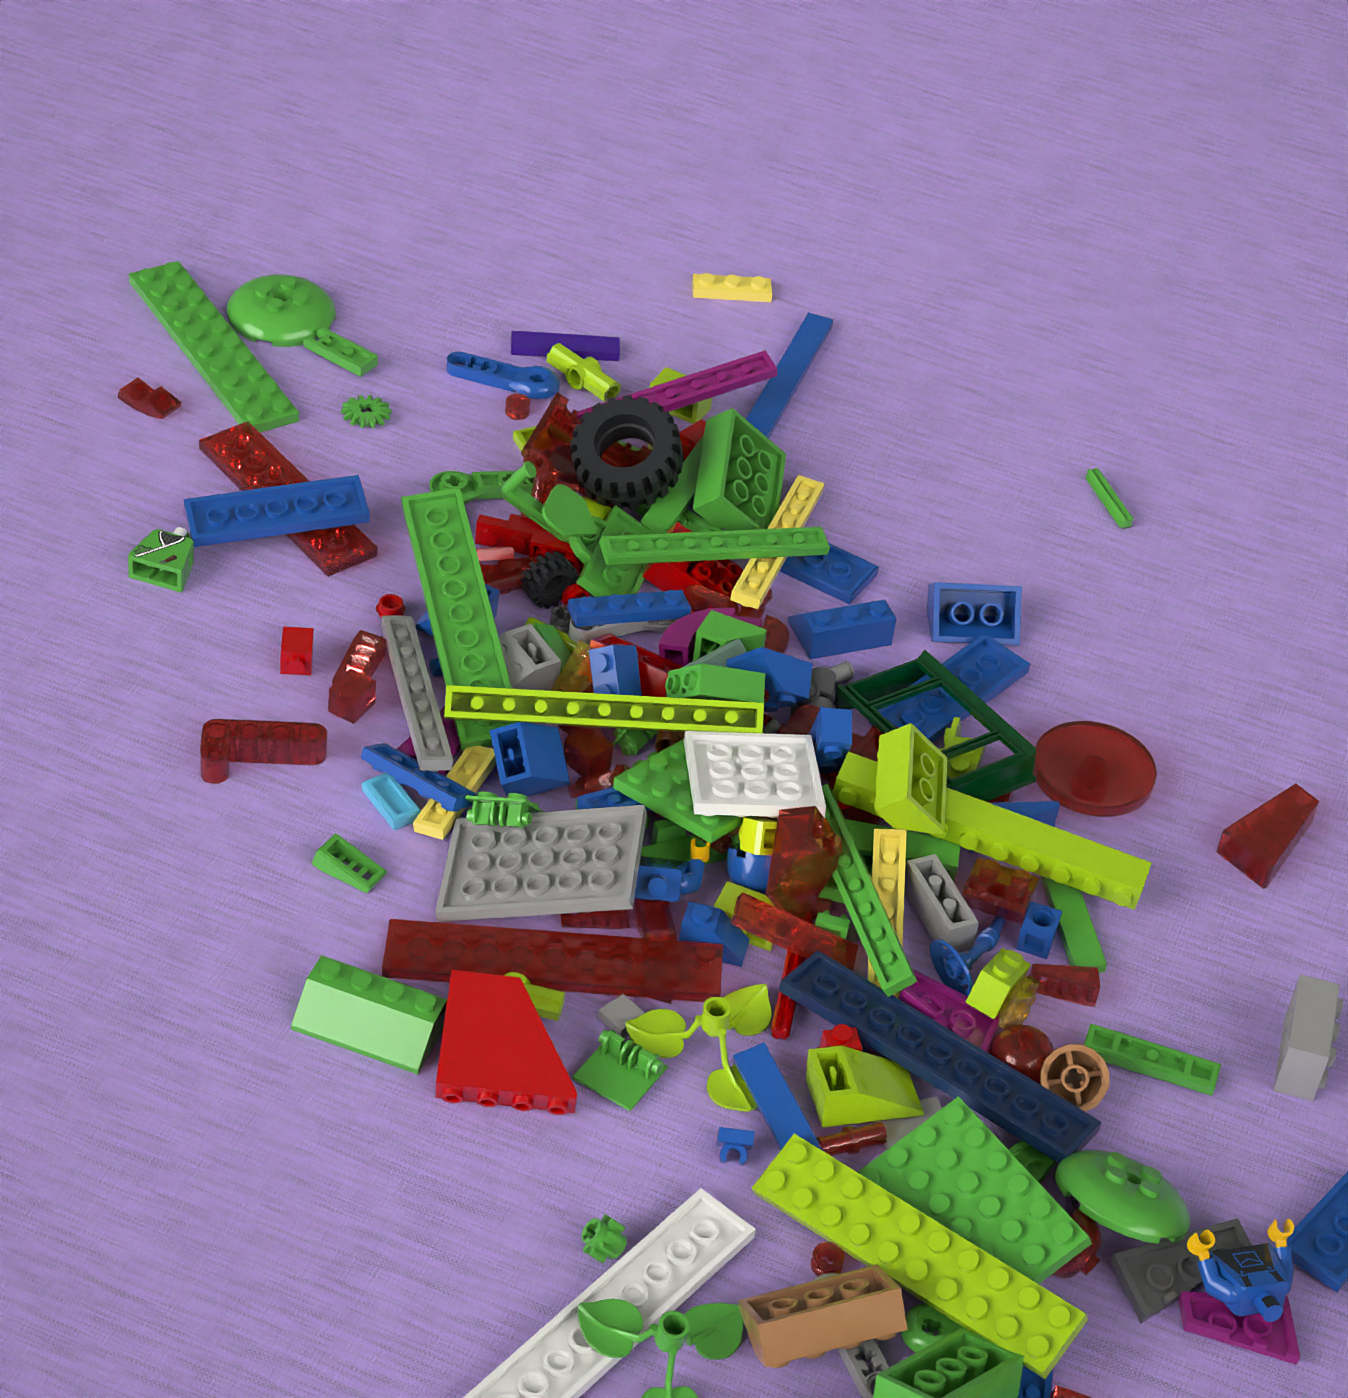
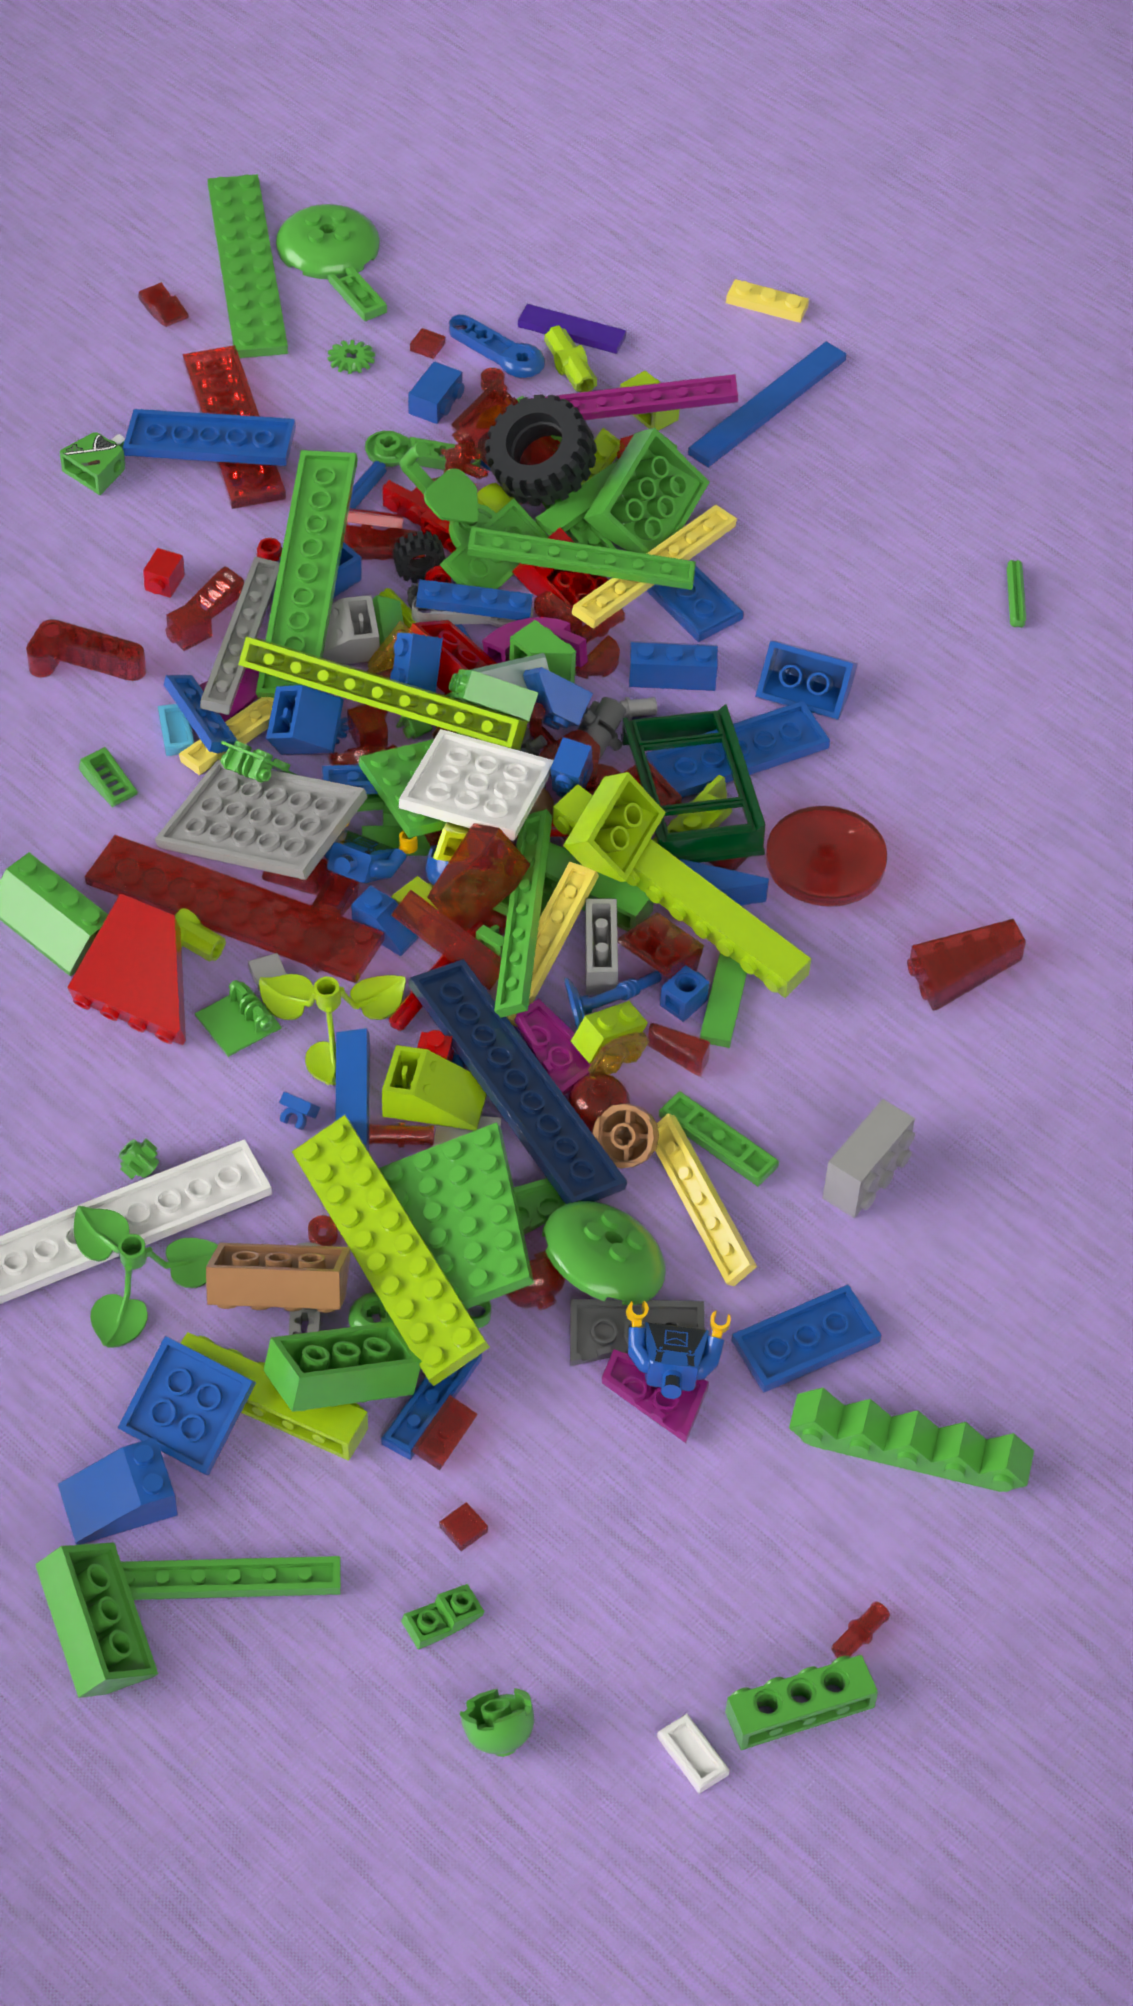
camera: 25 degrees right, 10 degrees up
(434, 385) = (427, 343): none -> clear red tile
(472, 427) = (435, 392): none -> blue brick
(1180, 1127) = (703, 1202): none -> light yellow plate

